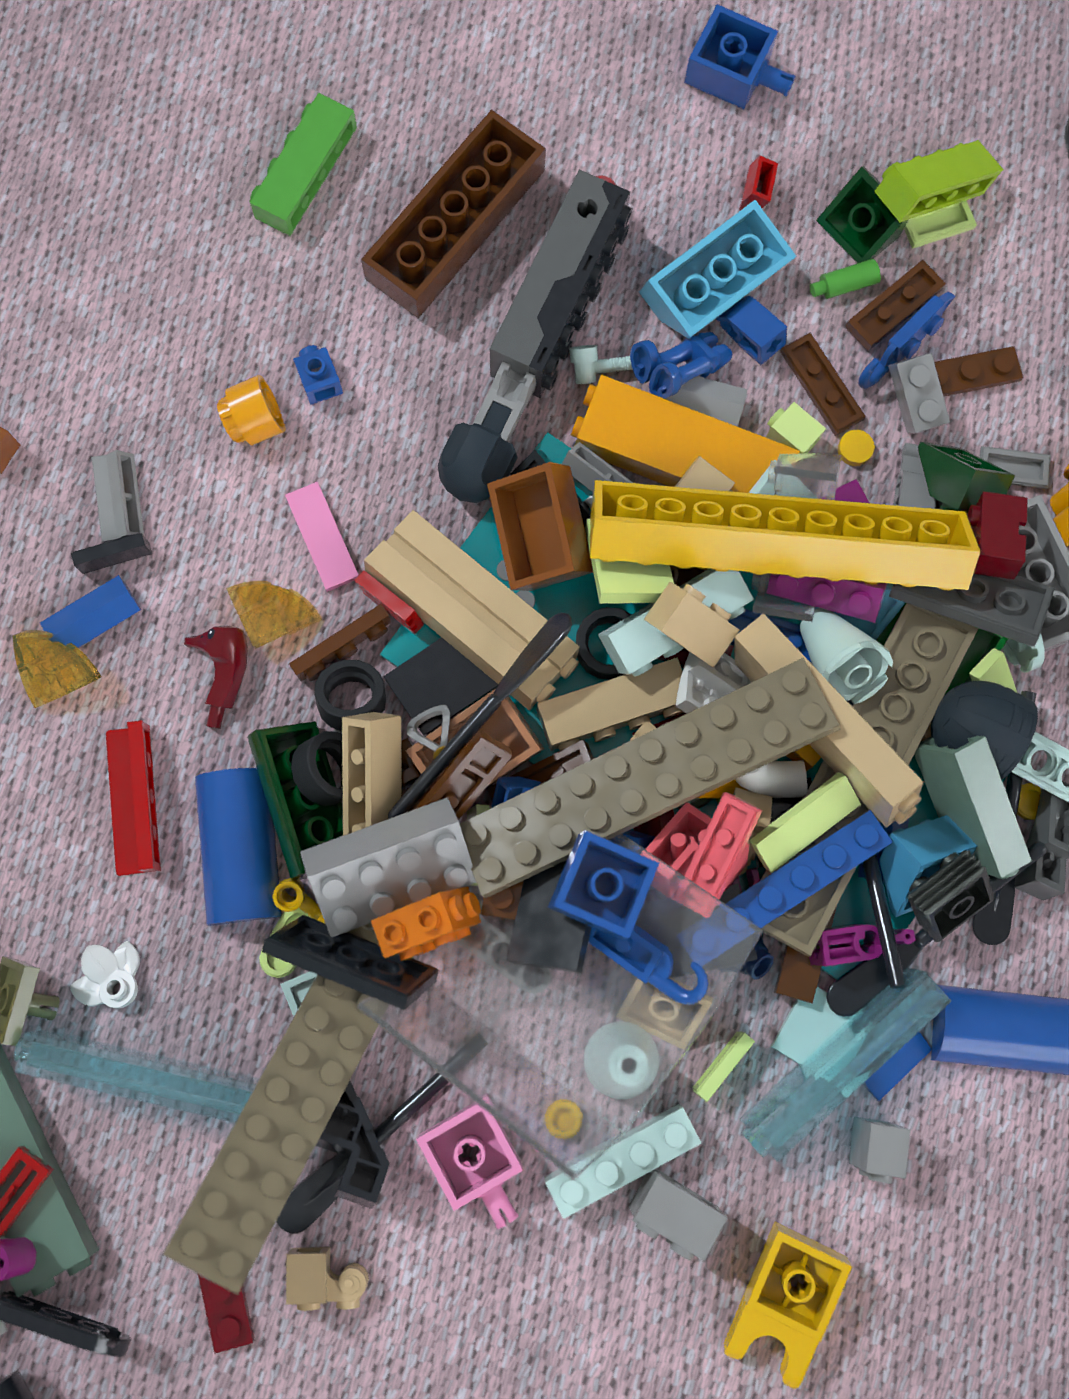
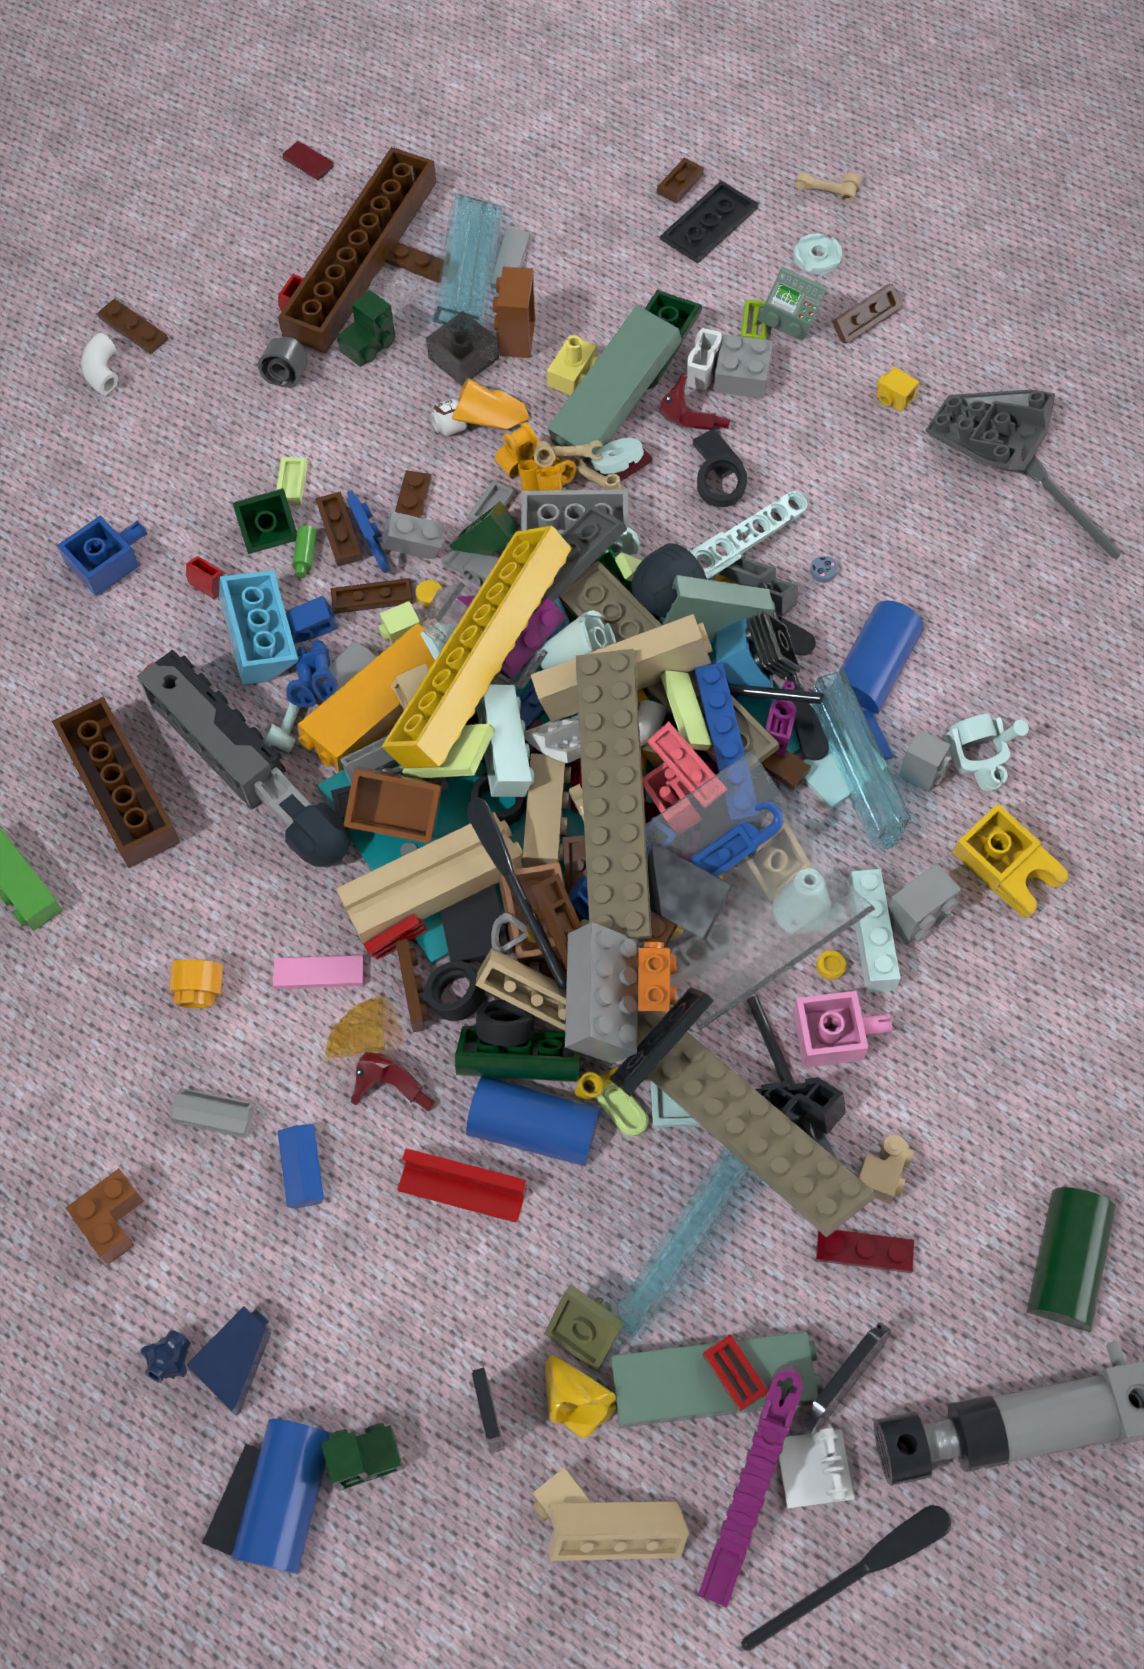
camera: 60 degrees left, 15 degrees down
(50, 667) = (327, 1209): clear yellow brick -> none
(103, 971) = (589, 1256): white plate -> none
(111, 553) = (256, 1130): black tile -> none
(319, 384) = (197, 930): blue brick -> none
(603, 885) = (679, 839): blue brick -> none
(691, 623) = (516, 722): tan brick -> none
(722, 1065) = (832, 841): yellowish green tile -> none
(937, 180) = (266, 463): lime brick -> none
(952, 1200) = (978, 731): none -> light aqua piece
(996, 529) = (531, 514): dark red brick -> none

